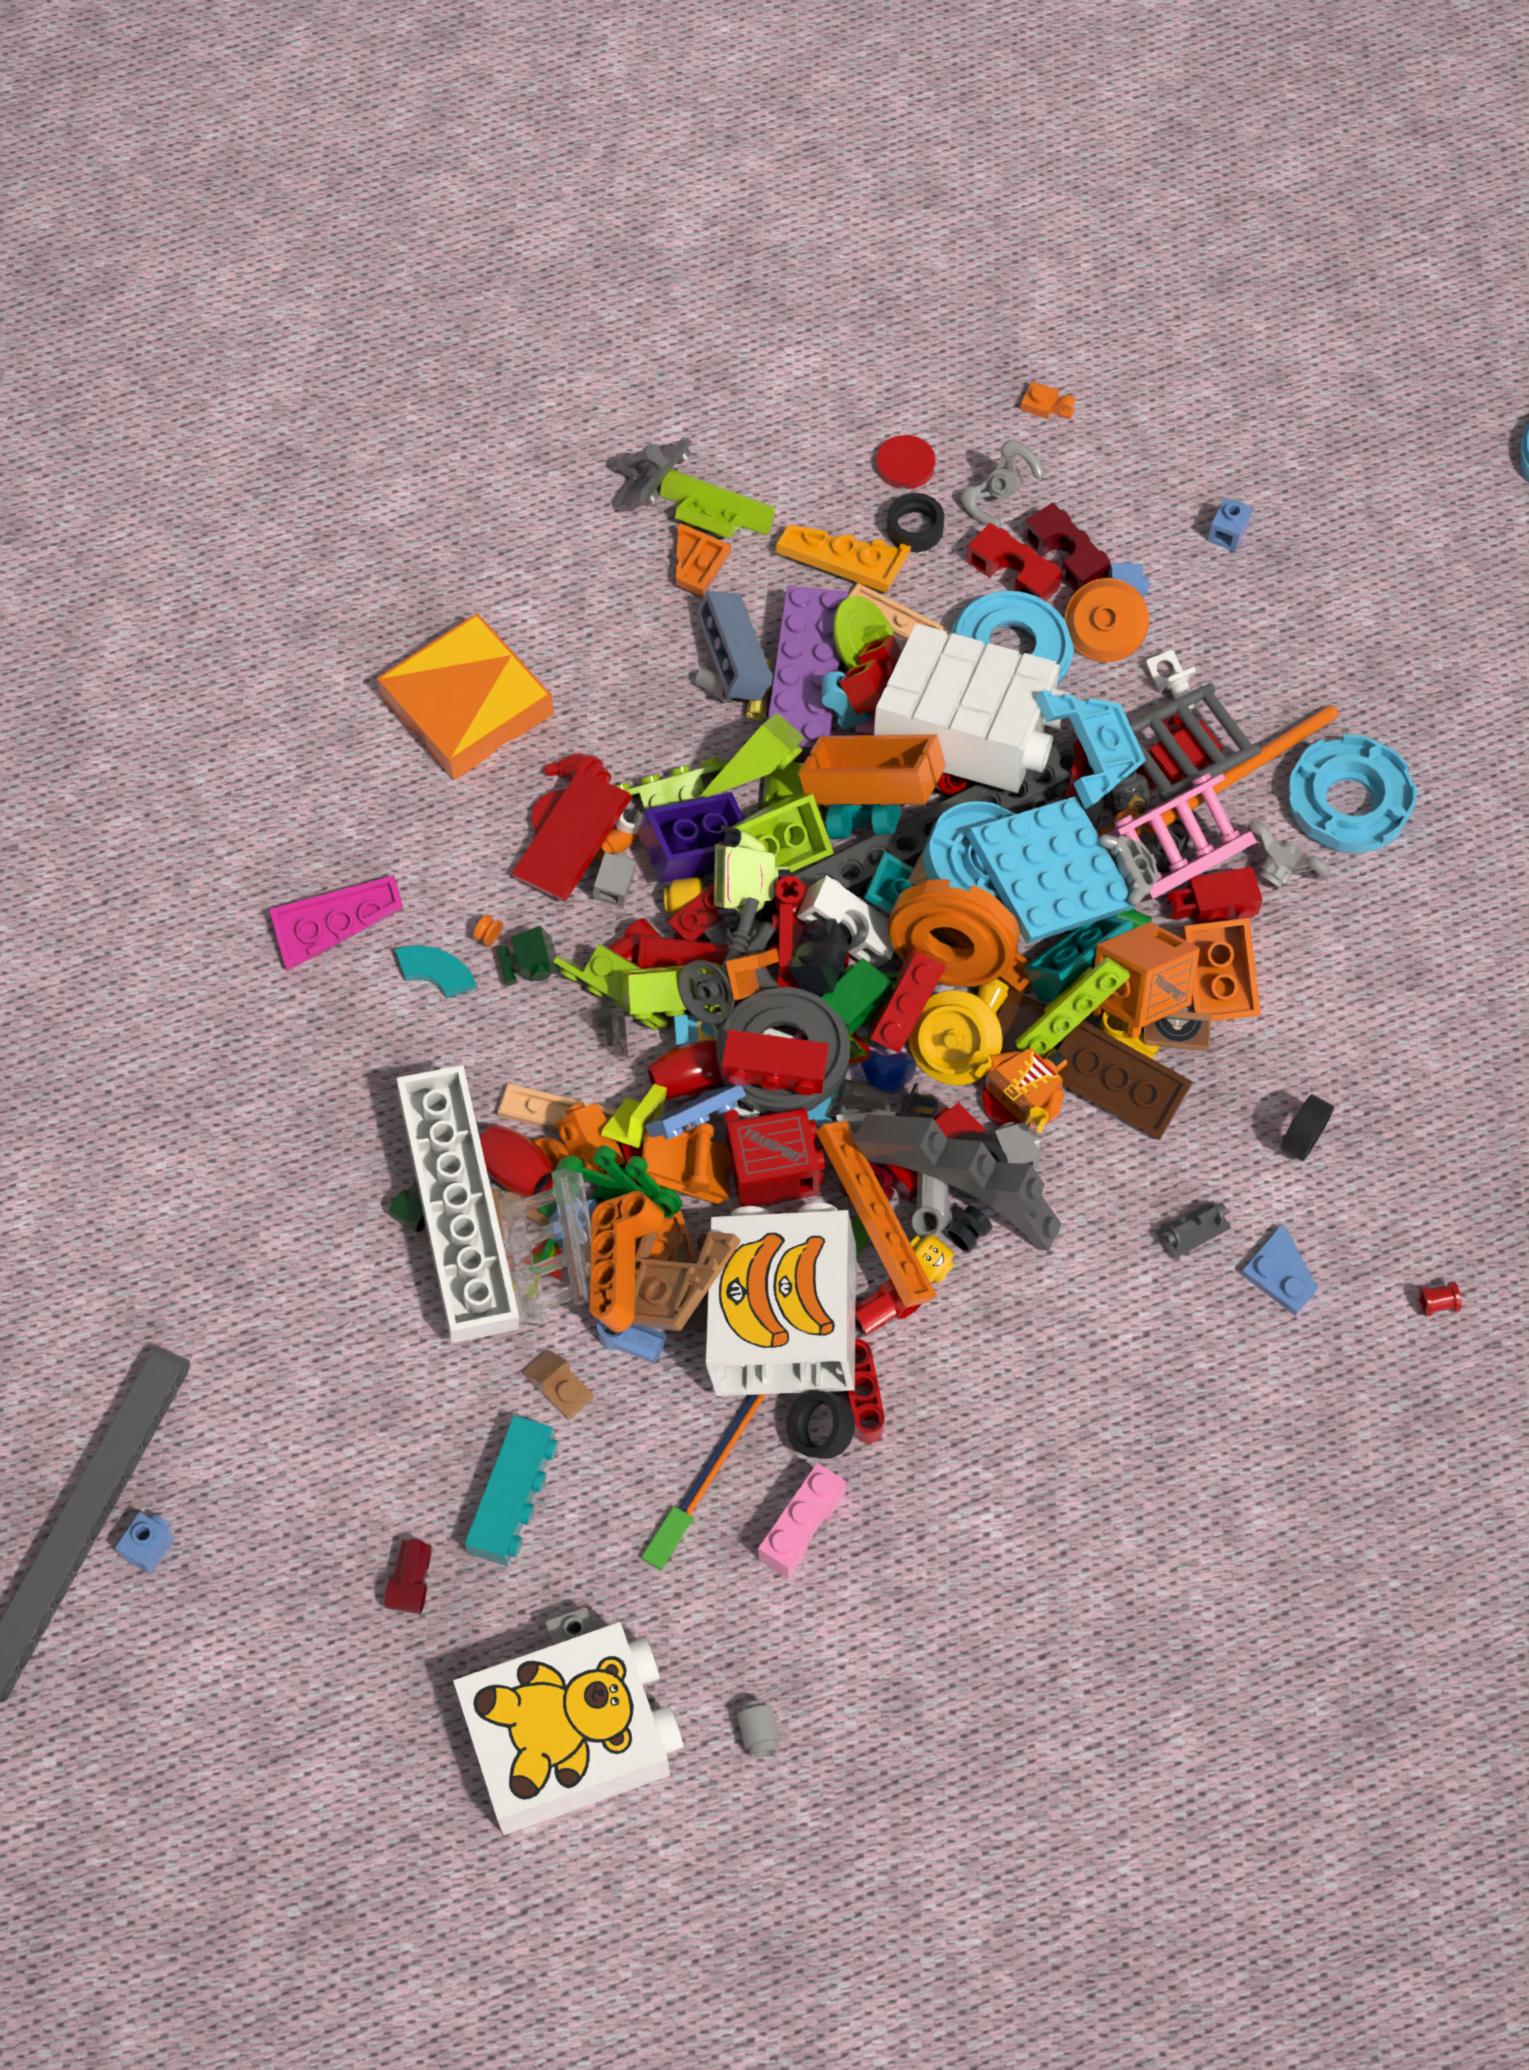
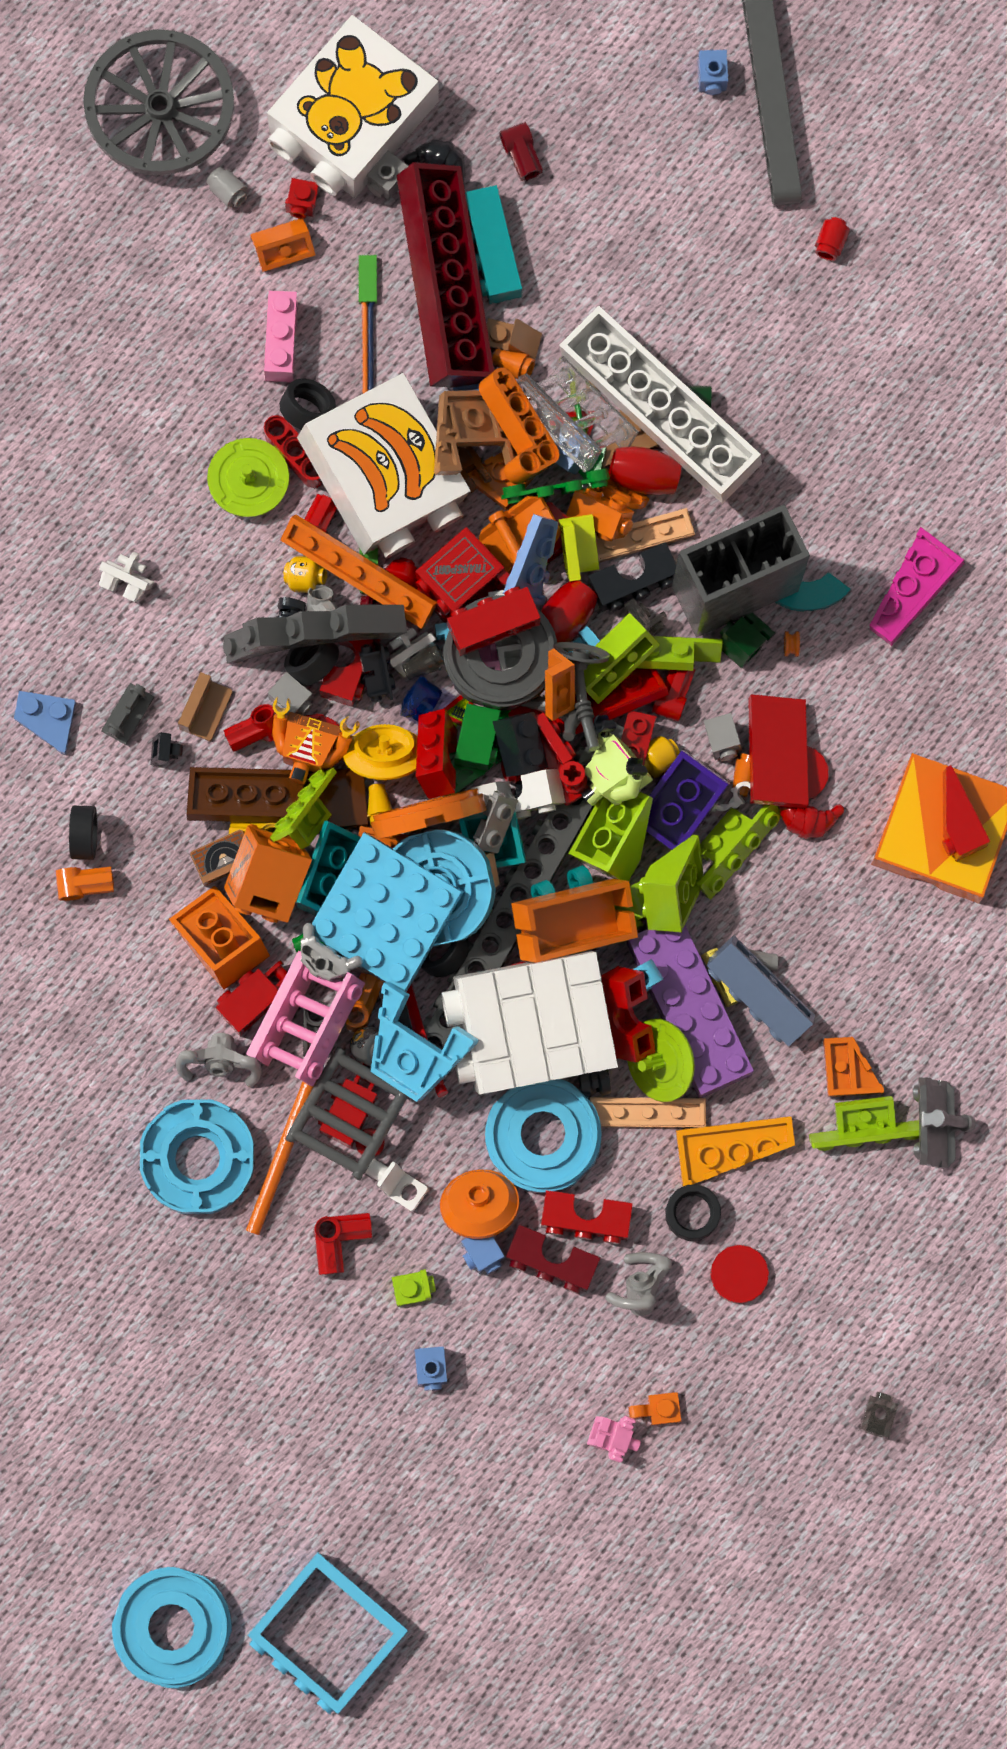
camera: 145 degrees right, 15 degrees up
(157, 1290) = (832, 238): none -> red brick
(452, 674) = (961, 824): none -> red slope
(499, 968) = (740, 570): none -> dark grey brick
(499, 1626) = (437, 153): none -> black piece
(571, 1064) = (615, 590): none -> black arch
(572, 1348) = (515, 362): none -> orange cone
(585, 1476) = (445, 274): none -> dark red brick
(683, 1669) = (301, 198): none -> red bracket
(735, 1631) = (282, 244): none -> orange panel
(830, 1194) = (404, 570): none -> red cone
(860, 301) = (870, 1423): none -> clear smoke brick
(867, 1849) = (159, 96): none -> dark grey wheel
(884, 891) = (492, 831): none -> light grey hinge
(929, 1389) = (248, 477): none -> lime piece
(1077, 1138) = (253, 729): none -> red piece
(1101, 396) = (614, 1436): none -> bright pink piece
(1110, 1191) = (204, 708): none -> medium nougat panel
(1116, 1364) = (136, 583): none -> white hips
(1177, 1169) = (164, 750): none -> black tile
(1207, 594) = (413, 1288): none -> lime bracket
(1256, 670) = (330, 1249): none -> red piece
(1340, 1091) = (76, 883): none -> orange piece
(1402, 401) = (284, 1664): none -> medium azure window

